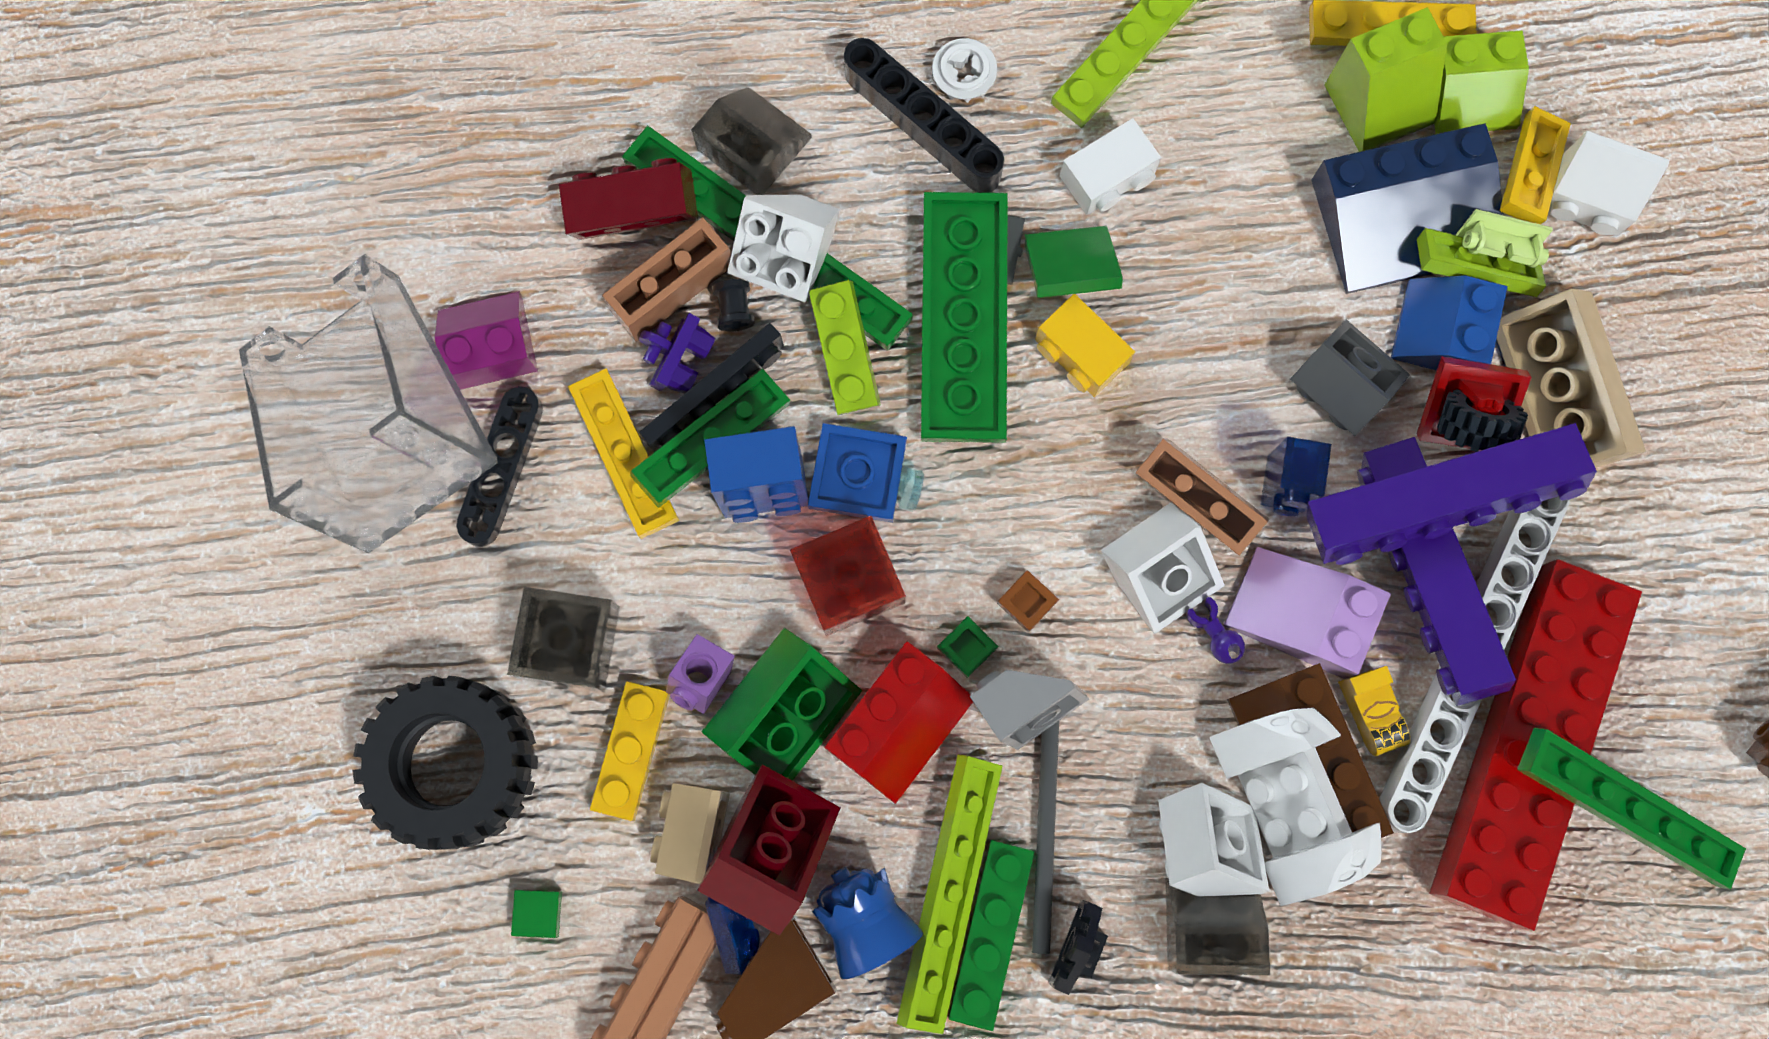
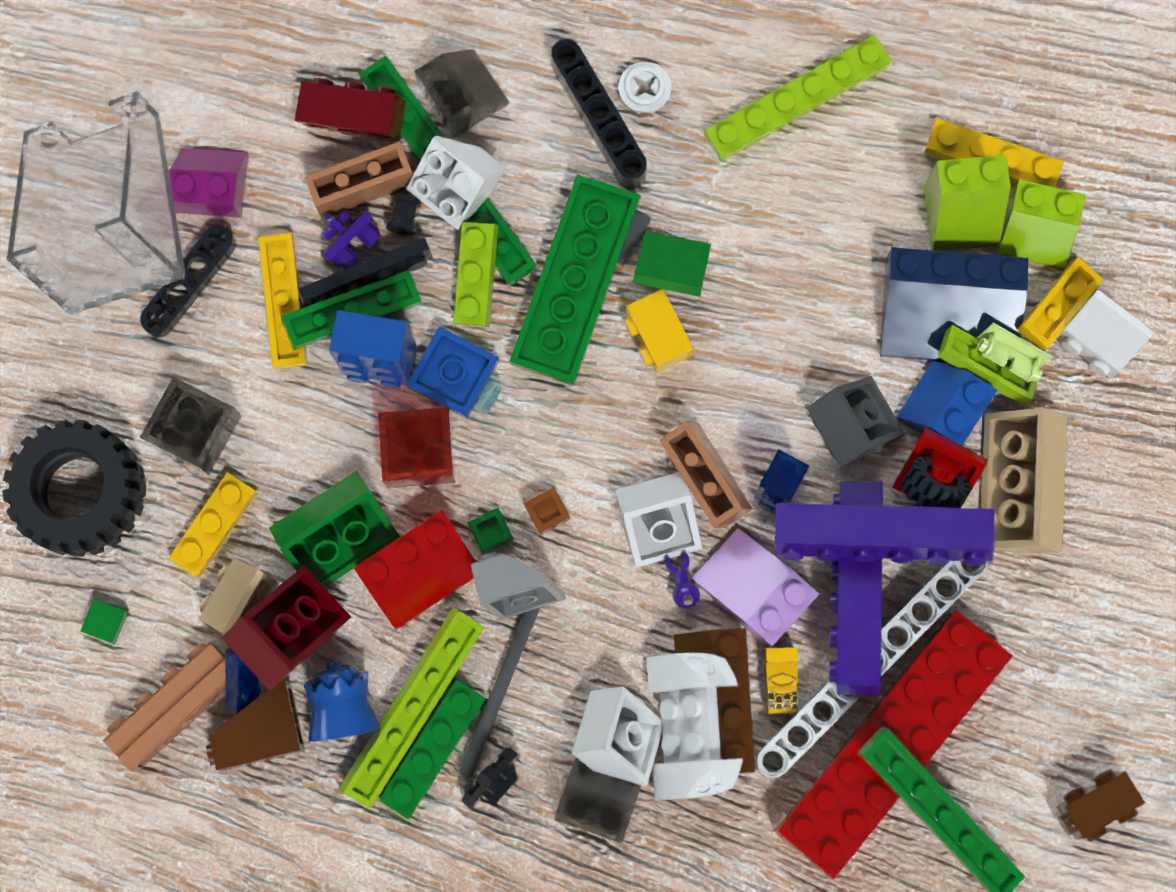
camera: 20 degrees right, 0 degrees up
(704, 658) = (286, 472): medium lavender brick -> none
(1110, 167) = (729, 200): white brick -> none

